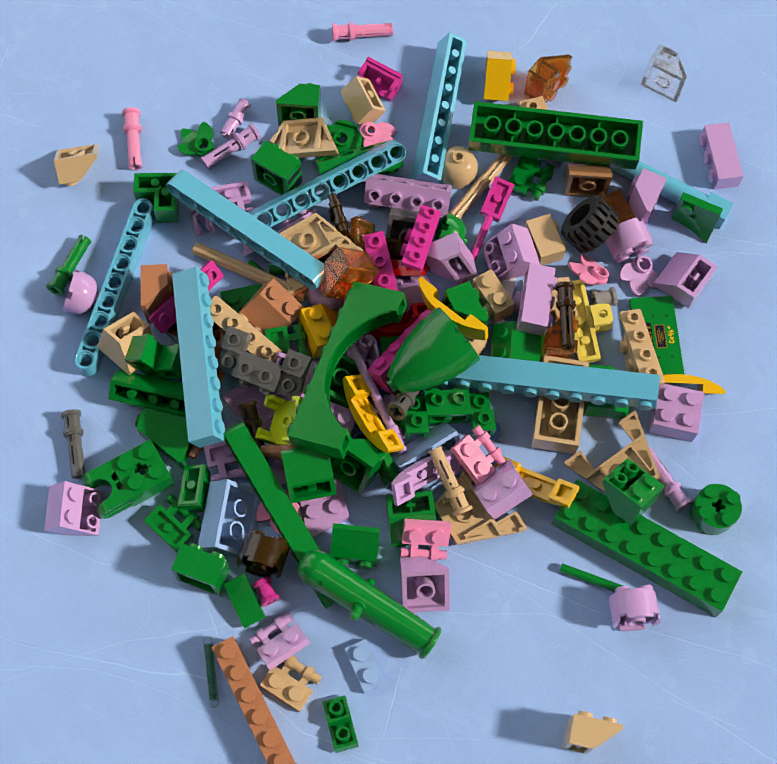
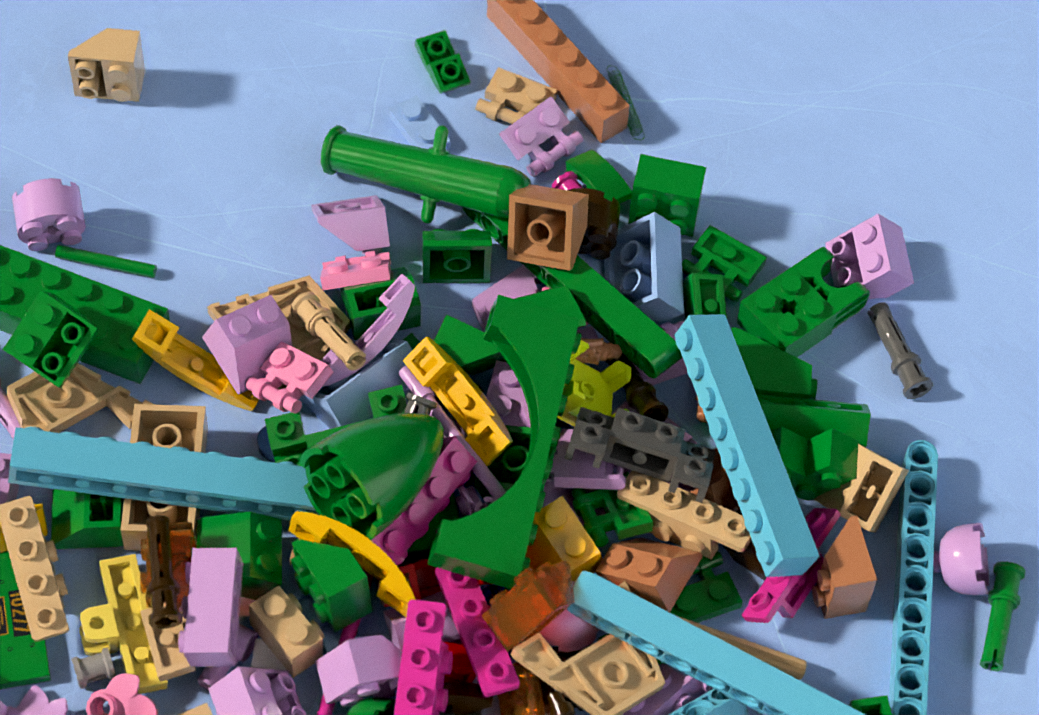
camera: 170 degrees right, 10 degrees down
(291, 535) = (546, 226): none -> medium nougat slope

